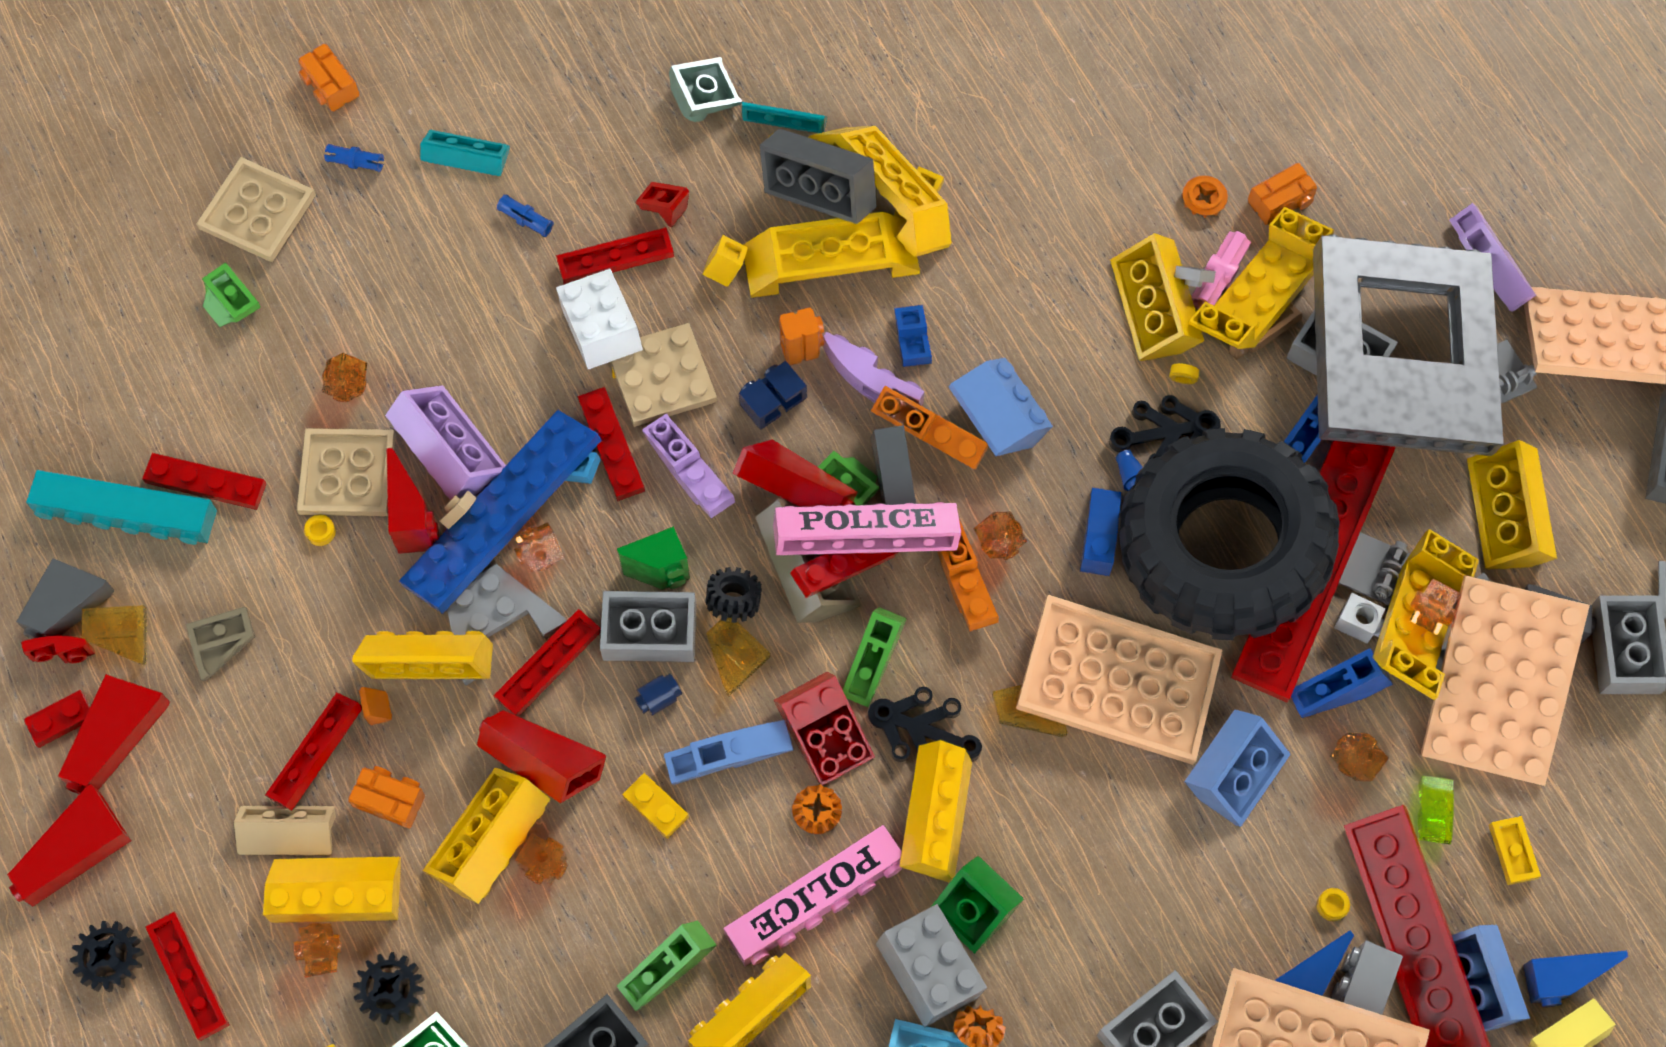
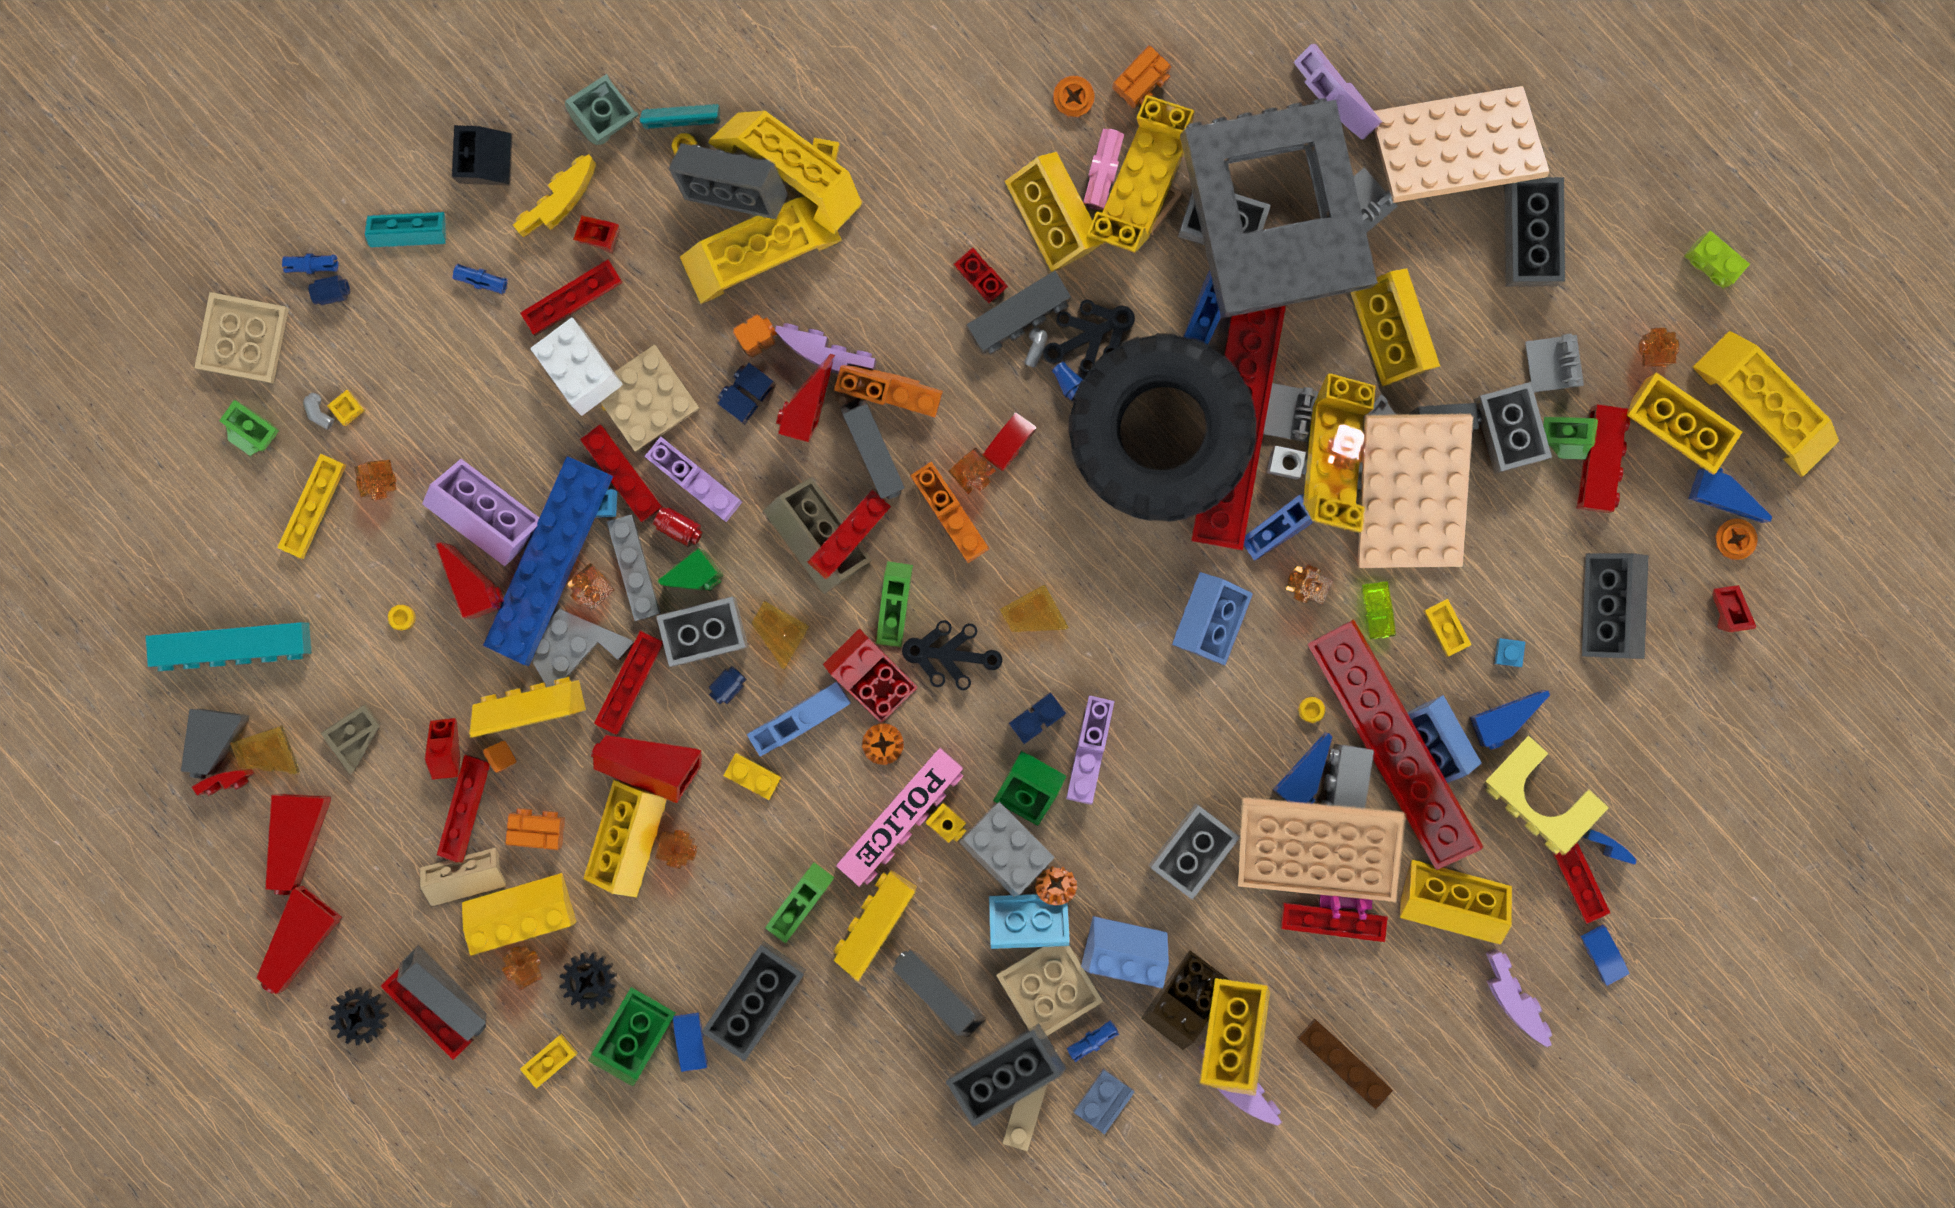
camera: 15 degrees left, 20 degrees up
(57, 718) = (245, 836): red plate -> none
(204, 481) = (289, 601): red plate -> none
(213, 956) = (441, 994): none -> dark grey slope
(265, 390) = (311, 506): none -> yellow plate
(303, 294) = (311, 406): none -> light grey arm
(314, 679) = (443, 749): none -> red slope
(328, 77) = (259, 190): orange brick -> none
(339, 304) = (346, 408): none -> yellow tile
(344, 472) = (404, 561): tan plate -> none
(364, 186) = (329, 290): none -> dark blue brick
(457, 508) = (511, 573): tan plate -> none
(566, 99) = (481, 156): none -> black slope
(592, 544) = (633, 567): none -> light grey plate
(643, 155) = (566, 190): none -> yellow slope
(654, 510) = (678, 527): none -> red head
(725, 261) = (669, 277): yellow panel -> none
(732, 606) = (760, 572): black tyre -> none
(791, 476) = (787, 471): red slope -> none
(835, 415) = (802, 413): none -> red slope
(853, 474) = (832, 452): bright green slope -> none
(857, 908) = (944, 813): none -> yellow brick
(866, 528) = (859, 505): bright pink brick -> none
(912, 335) = (851, 302): blue slope -> none
(936, 810) = (979, 725): yellow slope -> none
(992, 826) = (1046, 712): none -> dark blue piece
(1001, 407) = (943, 356): medium blue slope -> none
(1047, 517) = (1009, 441): none -> red slope
(1059, 877) = (1090, 750): none -> lavender slope
(1060, 343) = (980, 275): none -> red slope
(1095, 388) = (1018, 313): none -> dark grey brick
(1101, 532) = (1055, 440): blue slope -> none
(1109, 421) = (1039, 340): none -> light grey arm
(1120, 679) = (1100, 571): light nougat plate -> none
(1184, 373) = (1092, 277): yellow tile -> none
(1194, 276) = (1082, 185): light grey plate -> none
(1585, 900) = (1509, 652): none -> dark azure plate

